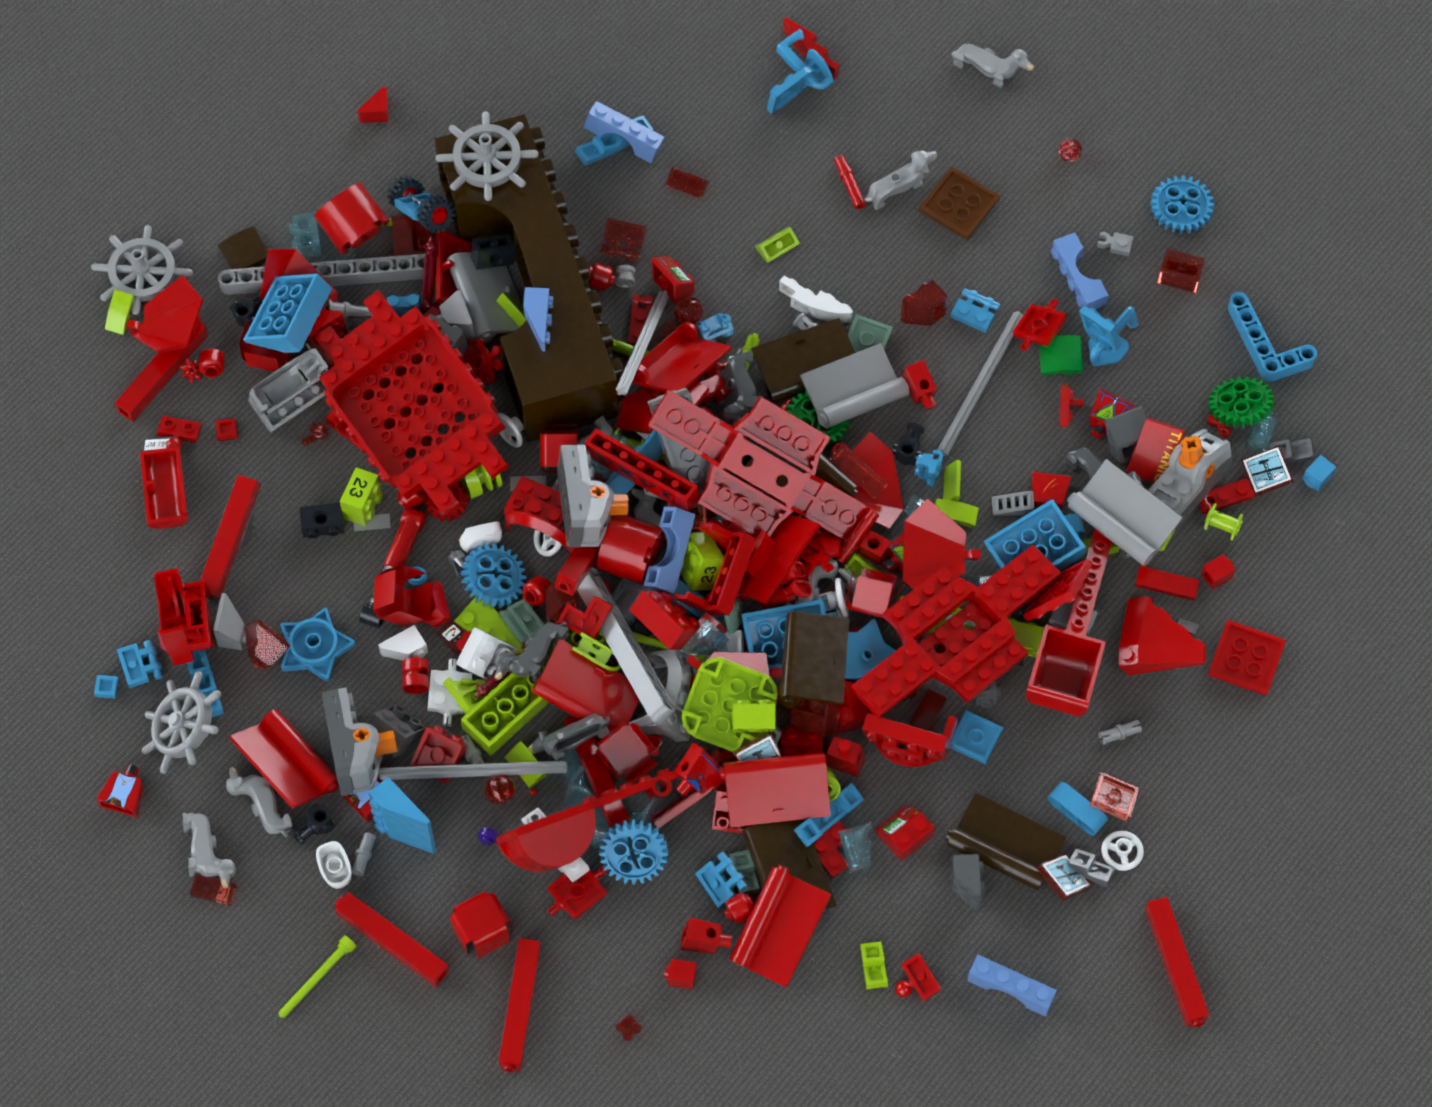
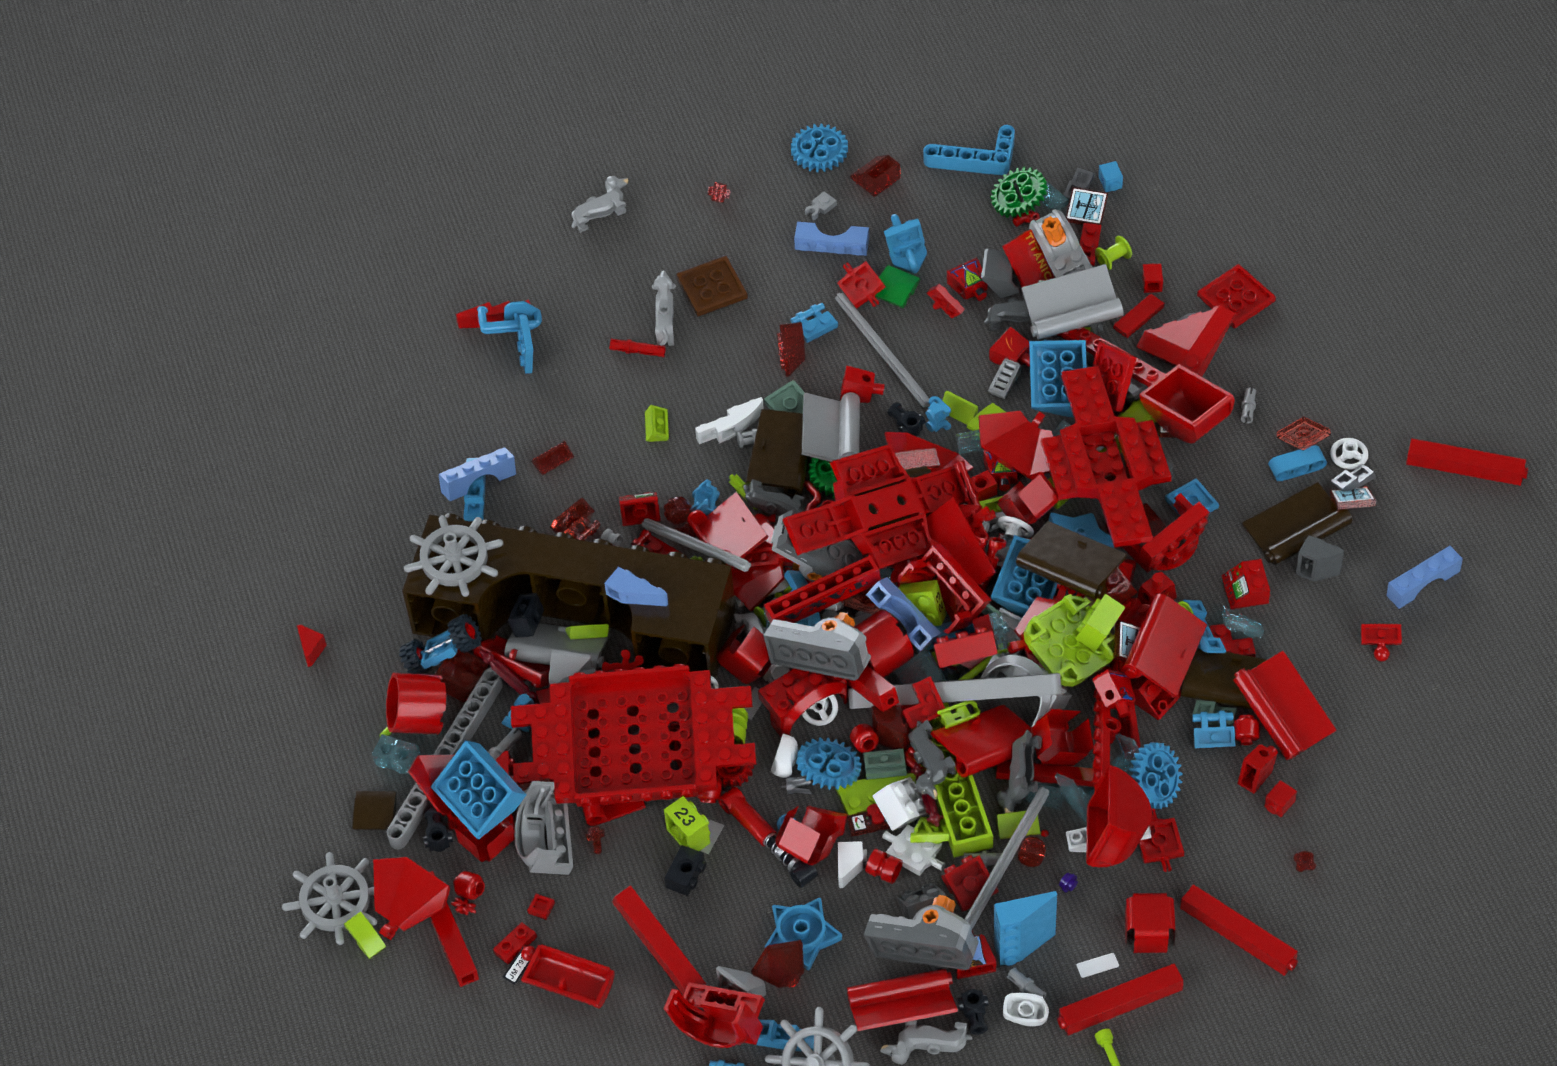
camera: 55 degrees left, 10 degrees down
(421, 904) = (1097, 965): none -> white sticker
(874, 965) = (1347, 663): lime slope -> none

